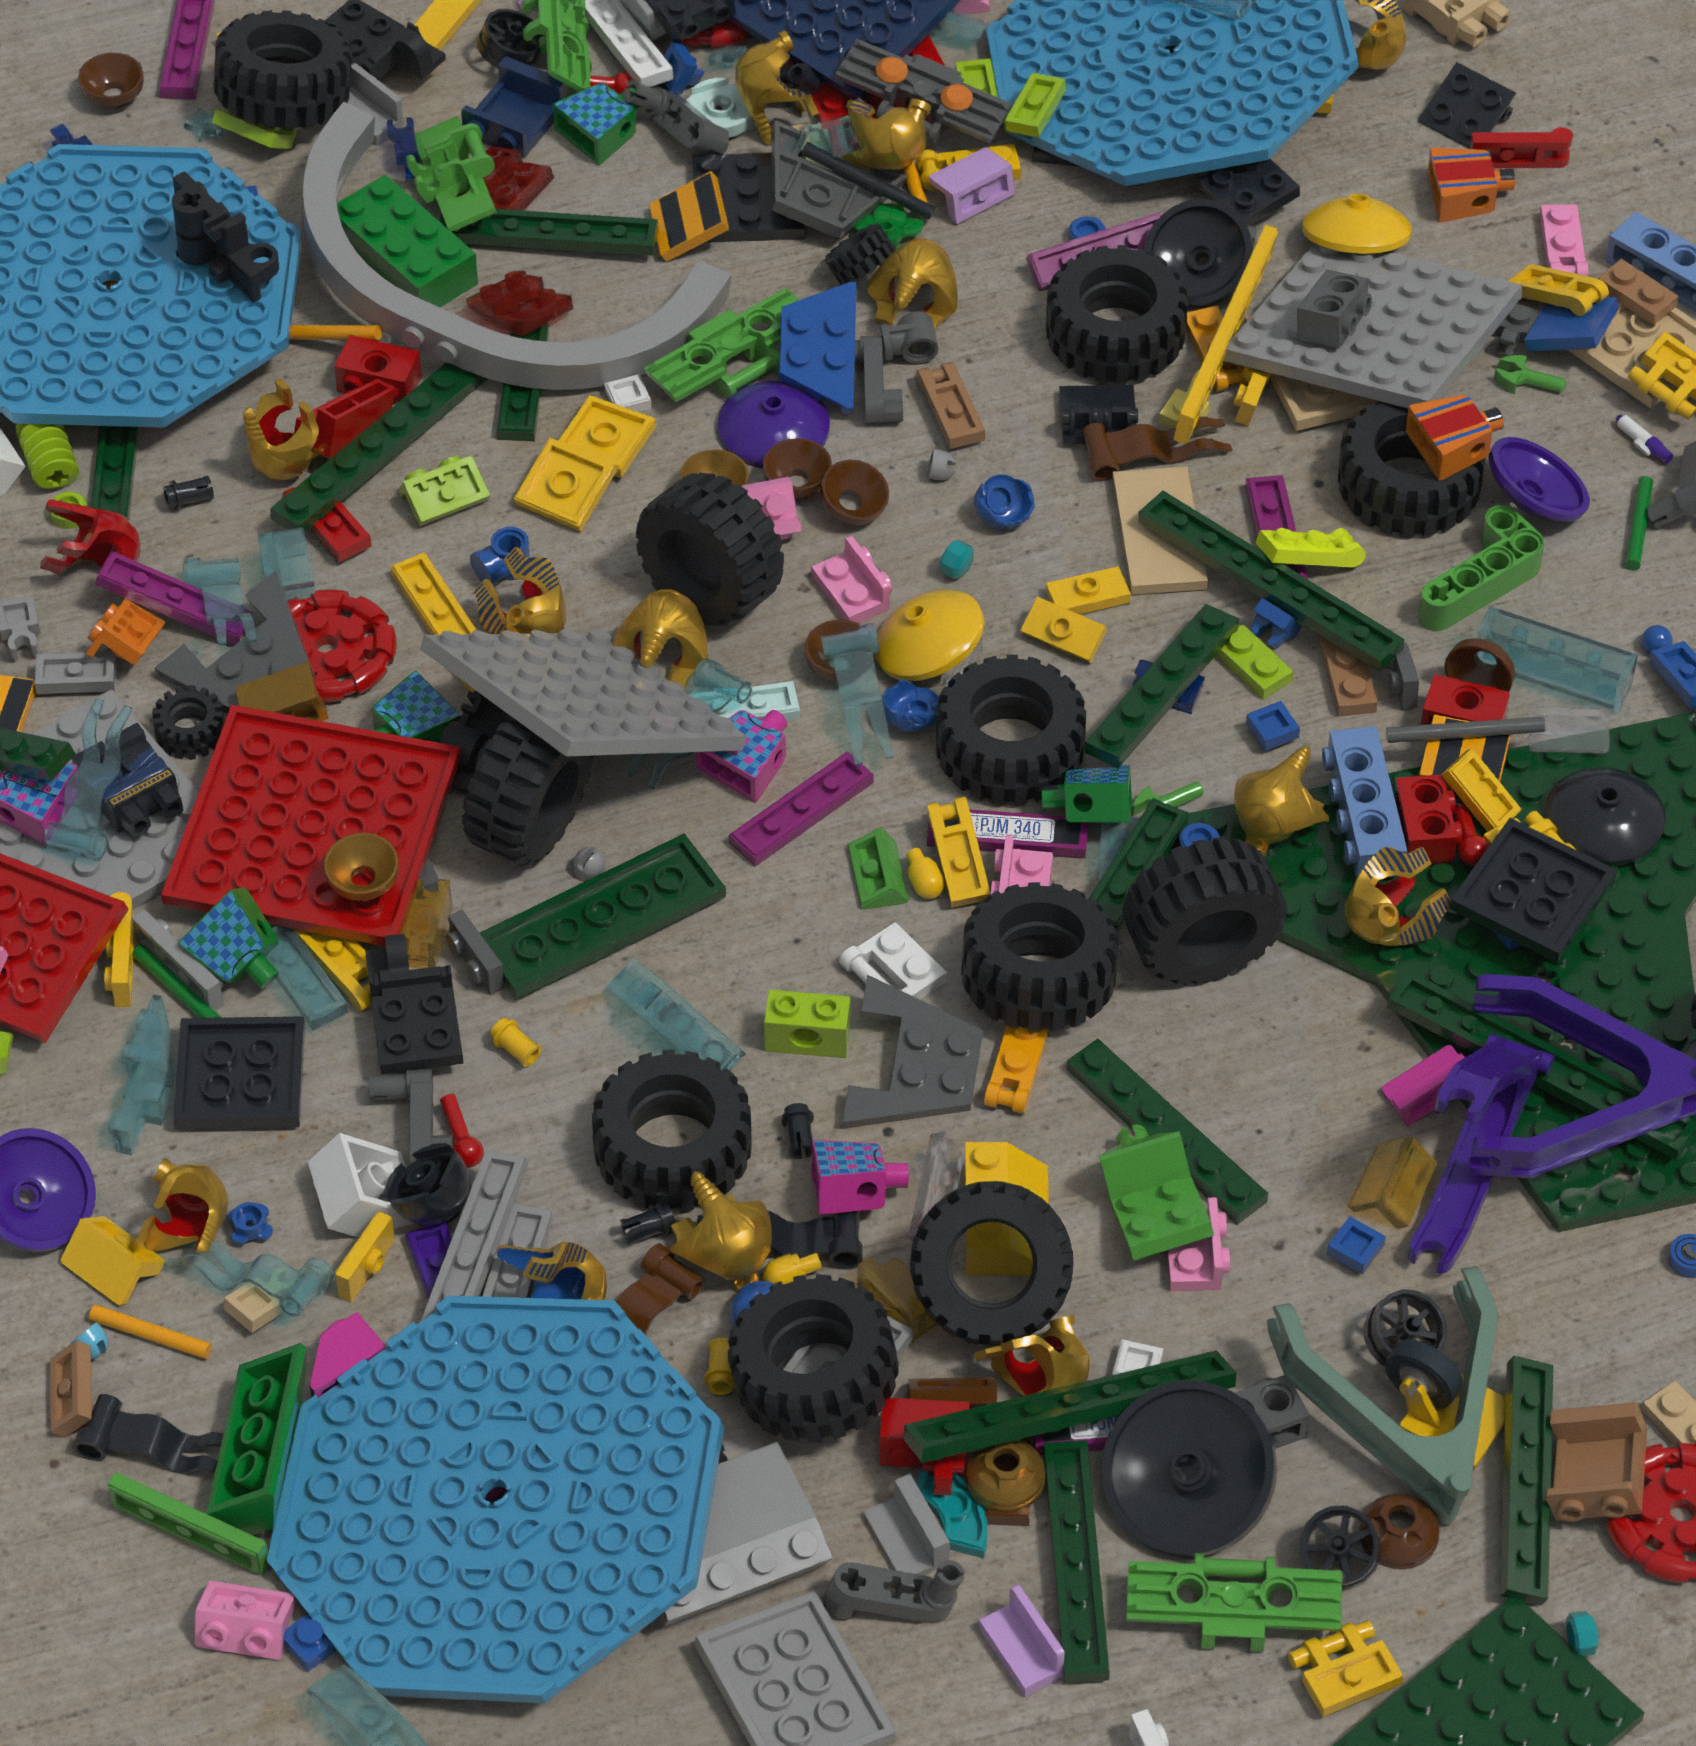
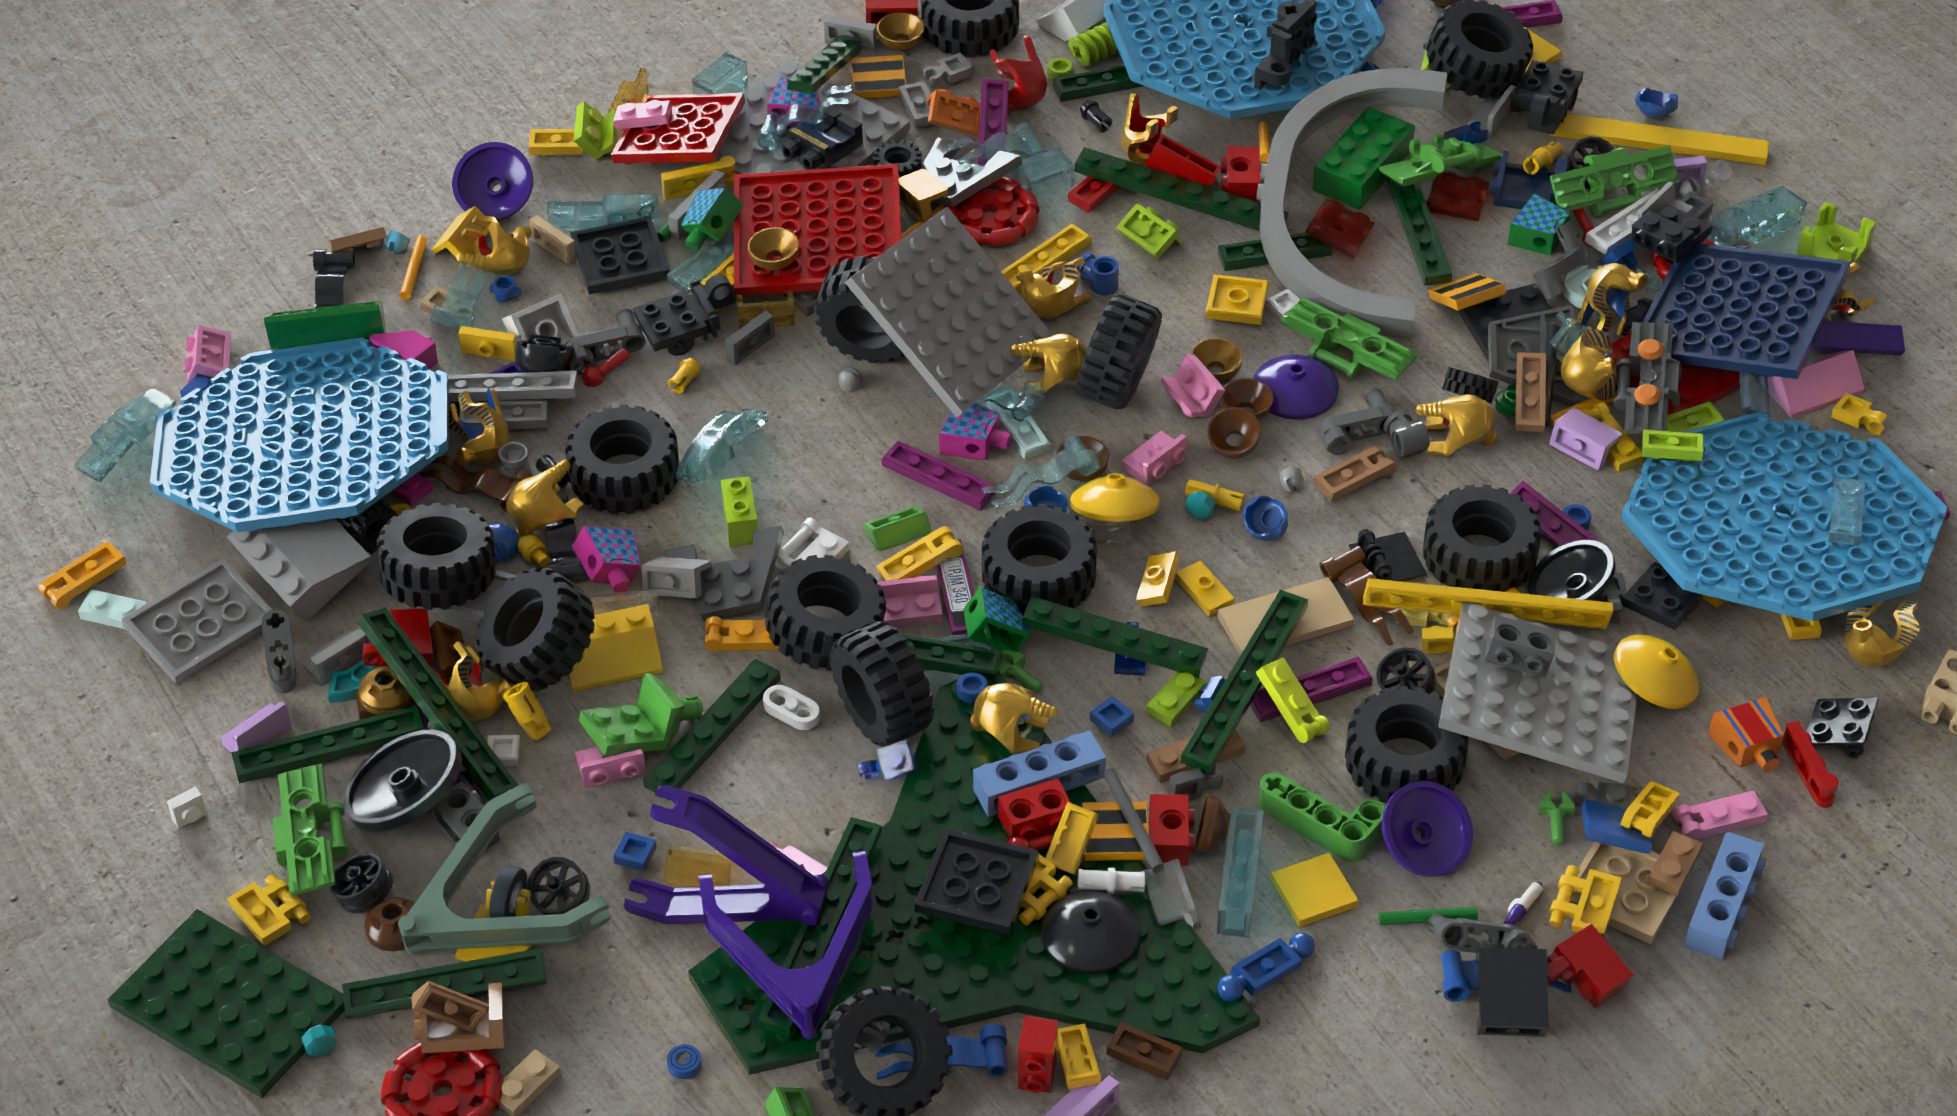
camera: 75 degrees right, 5 degrees down
(178, 1143) = (553, 240): none -> tan plate
(188, 1523) = (274, 301): bright green tile -> none
(477, 83) = (1543, 157): none -> yellow pin
(565, 484) = (1182, 288): yellow plate -> none
(603, 915) = (804, 392): dark green plate -> none
(621, 1260) = (513, 457): none -> light grey wheel
(798, 1120) = (652, 529): black pin -> none
(820, 345) = (1366, 381): blue wing -> none
(895, 203) = (1530, 392): none -> medium nougat plate
(905, 1111) = (674, 576): none -> light grey panel
(924, 875) = (896, 545): yellow cylinder -> none
(939, 540) = (1222, 496): none -> yellow axle
(1099, 1311) = (527, 710): none -> yellow hinge
(1160, 1040) = (795, 708): none -> white plate
(1293, 952) = (893, 762): none -> clear blue plate
(1301, 440) = (1397, 664): none -> black wheel
(1372, 905) = (935, 792): pearl gold piece -> none
(1452, 433) = (1416, 742): orange torso -> none
(1543, 775) = (1111, 880): none -> white pin
(1580, 606) = (1314, 890): none -> yellow tile
(1600, 1460) = (449, 1006): none -> medium nougat slope

